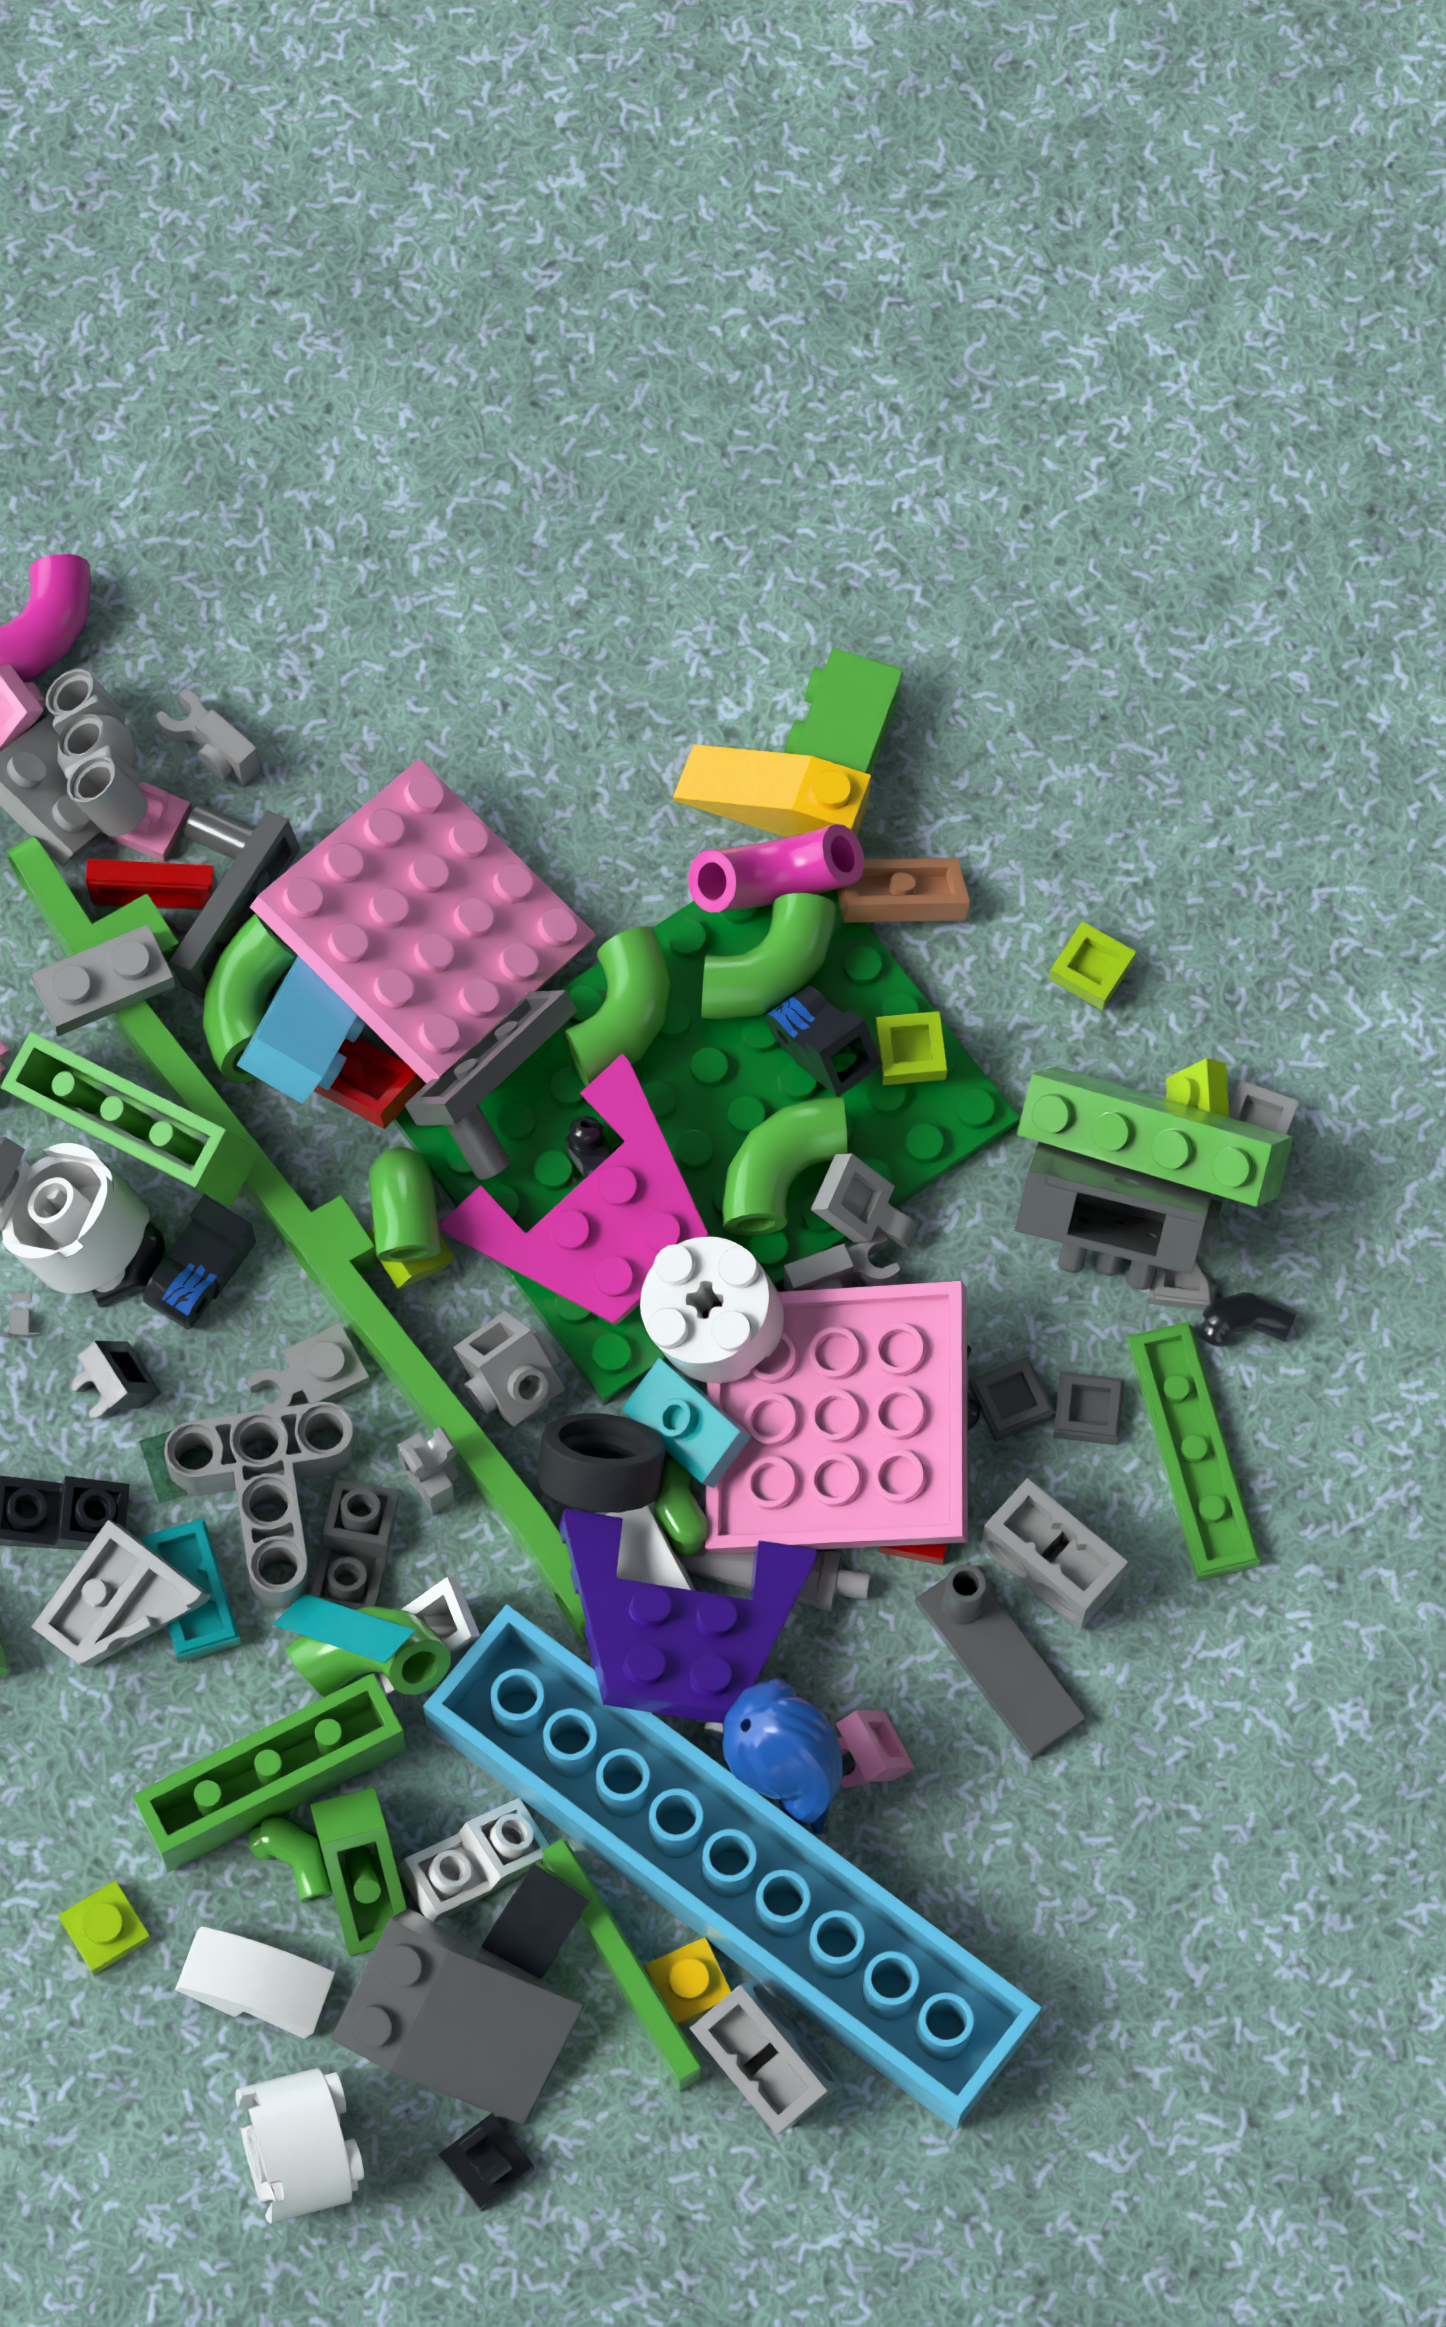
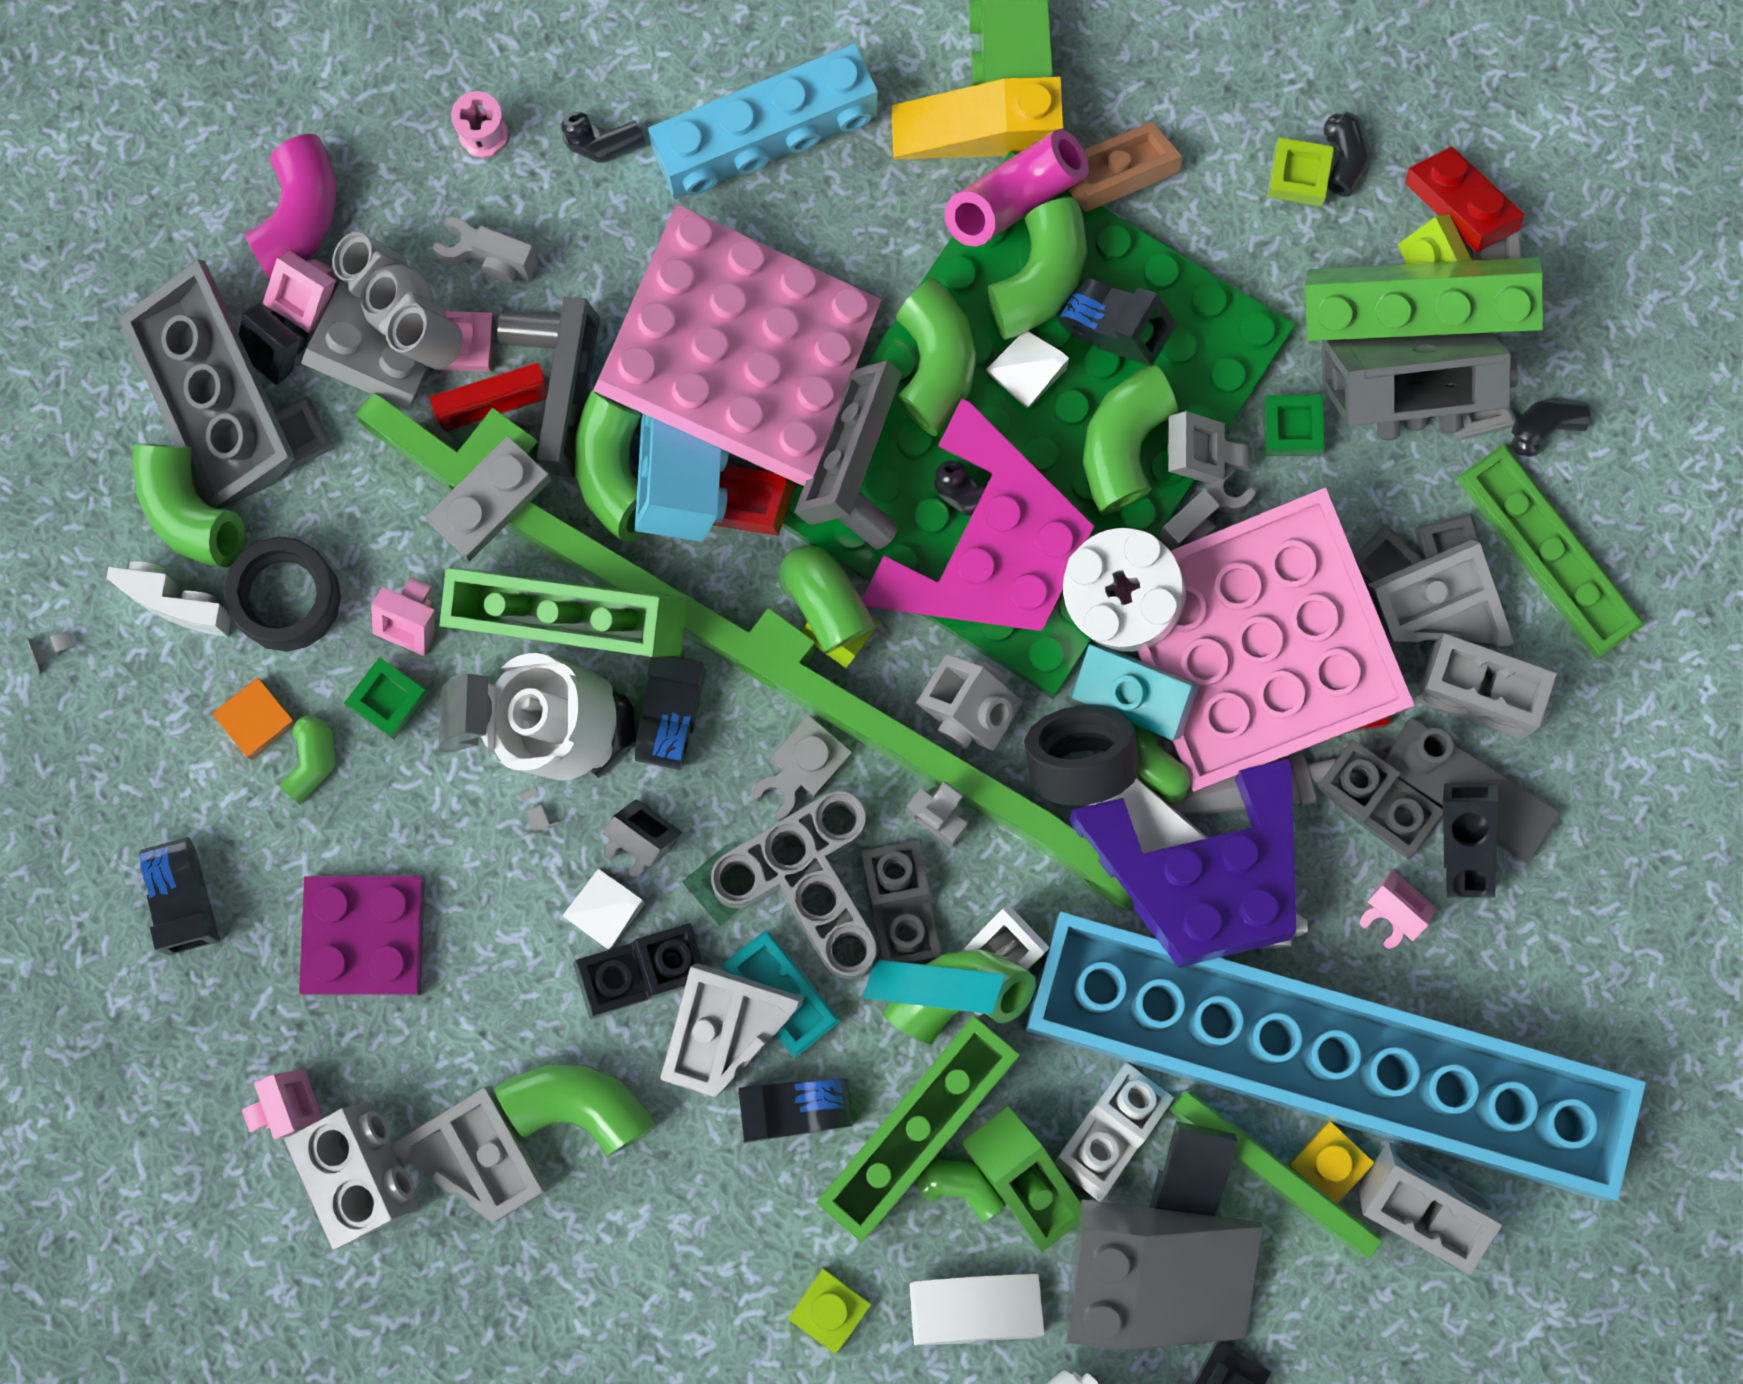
camera: 20 degrees left, 10 degrees up
(48, 1439) = (604, 909): none -> white slope
(153, 1708) = (794, 1109): none -> black leg
(249, 596) = (466, 117): none -> bright pink bush
(371, 673) = (597, 143): none -> black arm
(549, 712) = (764, 122): none -> medium azure brick
(715, 1057) = (1028, 368): none -> white slope
(784, 1750) = (1350, 949): blue piece -> none
(899, 1632) = (1379, 800): none -> dark grey slope
(911, 1048) = (1191, 298): lime plate -> none
(972, 1220) = (1293, 425): none -> green plate
(972, 1705) = (1470, 839): none -> black leg
(1054, 1446) = (1442, 597): none -> light grey wing
(1161, 964) = (1354, 150): none -> black arm
(1254, 1054) = (1457, 188): none -> red plate

